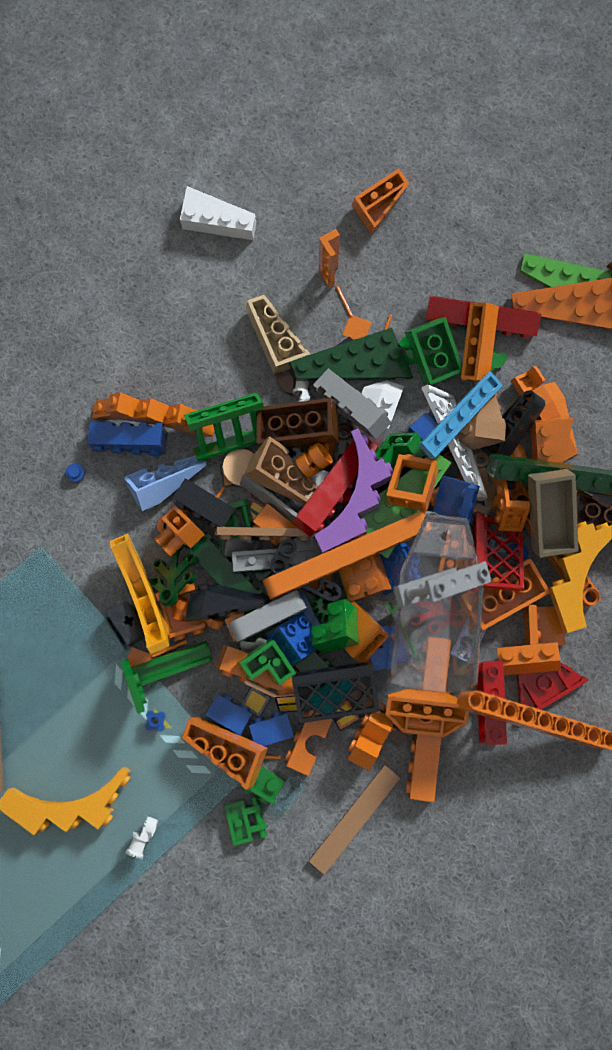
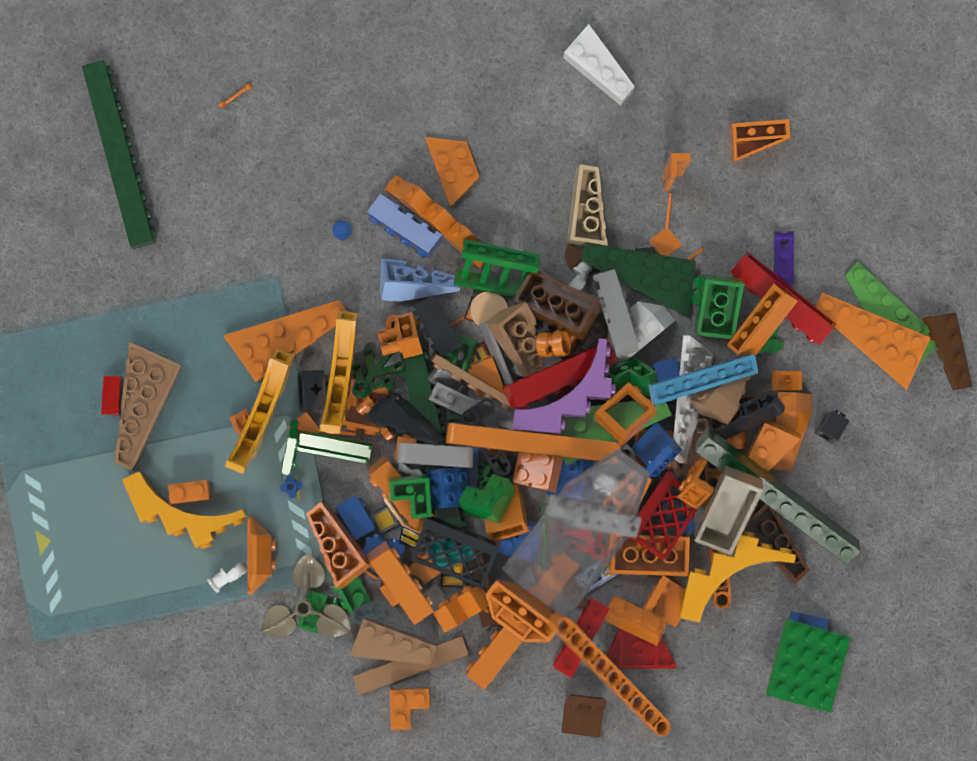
camera: 25 degrees right, 5 degrees up
(65, 780) = (190, 492): none -> orange brick
(69, 602) = (290, 334): none -> orange wing
(79, 689) = (239, 420): none -> orange tile
(91, 667) = (262, 411): none -> light orange arch
(141, 366) = (453, 166): none -> orange wing
(161, 800) = (259, 554): none -> orange wedge
(262, 821) = (333, 620): none -> dark tan plant
(302, 749) = (400, 583): none -> orange wedge
(324, 811) = (391, 644): none -> medium nougat wedge
(367, 858) = (402, 702): none -> orange brick
(461, 282) = (784, 256): none -> dark purple plate
(533, 771) = (583, 715): none -> reddish brown bracket
(590, 395) = (832, 426): none -> black brick

